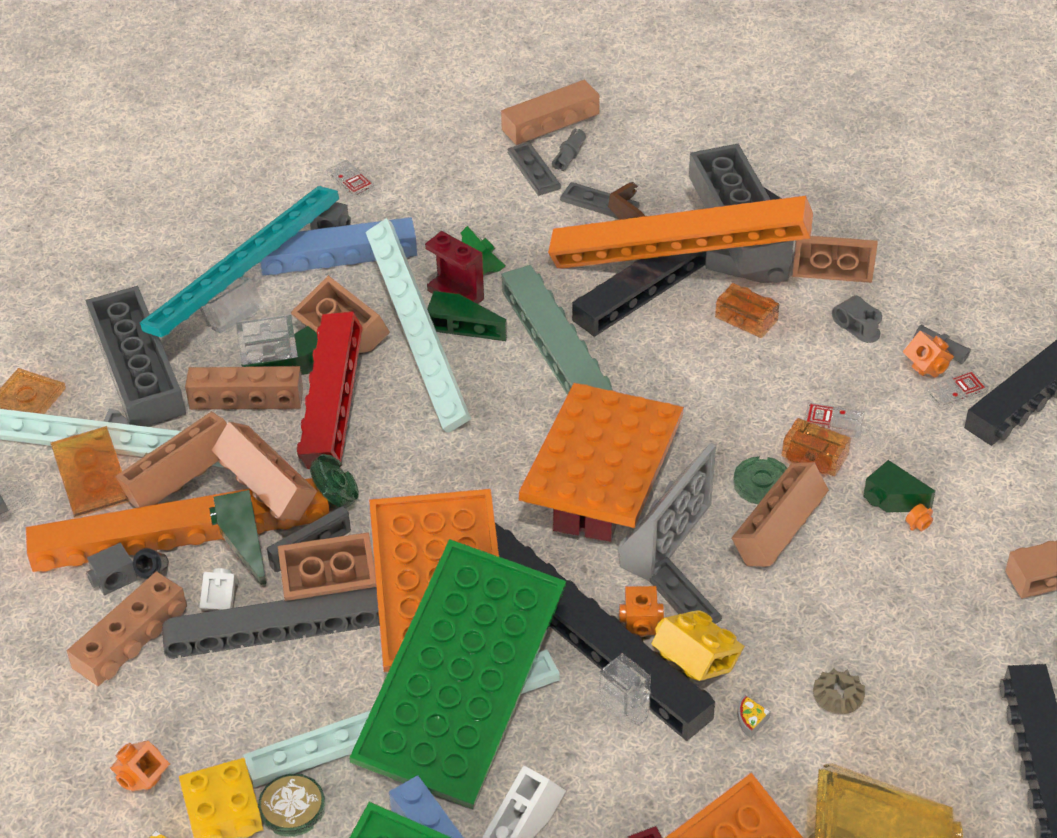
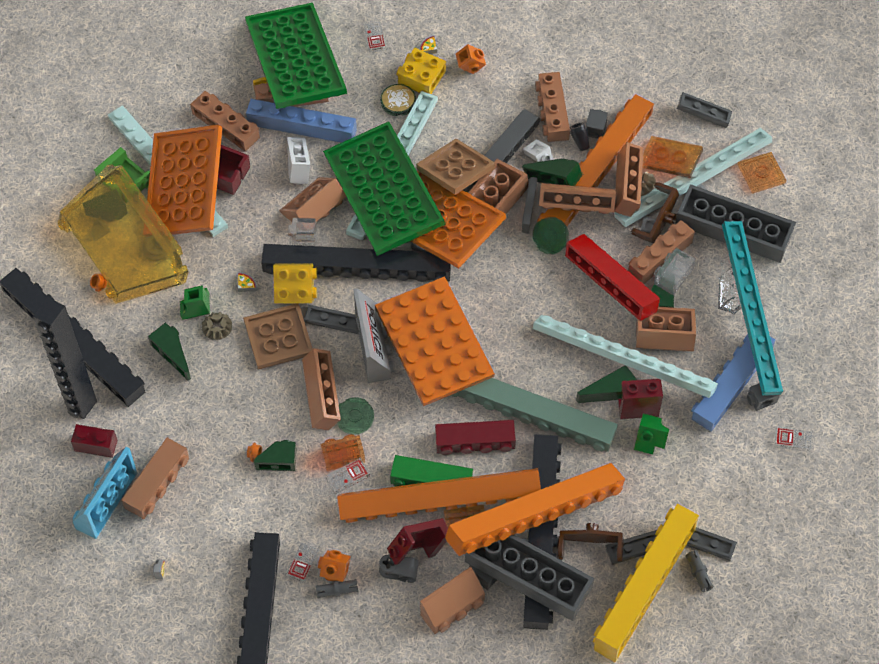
camera: 135 degrees right, 15 degrees up
(188, 412) = (664, 216): none -> reddish brown piece
(347, 616) = (455, 166): none -> medium nougat plate
(550, 112) = (742, 588): nougat brick -> none
(564, 744) = (315, 200): none -> nougat slope
(626, 152) = (645, 582): none -> yellow brick
(641, 610) = (338, 286): orange brick -> none
(654, 368) = (475, 436): none -> dark red brick
(740, 365) = (415, 471): none -> green brick
(759, 329) = (437, 494): none -> orange brick
(774, 617) = (278, 336): none -> medium nougat plate
(823, 302) = (424, 535): none -> dark red panel
(847, 726) = (195, 302): none -> green brick
(929, 703) = (168, 345): none -> dark green slope

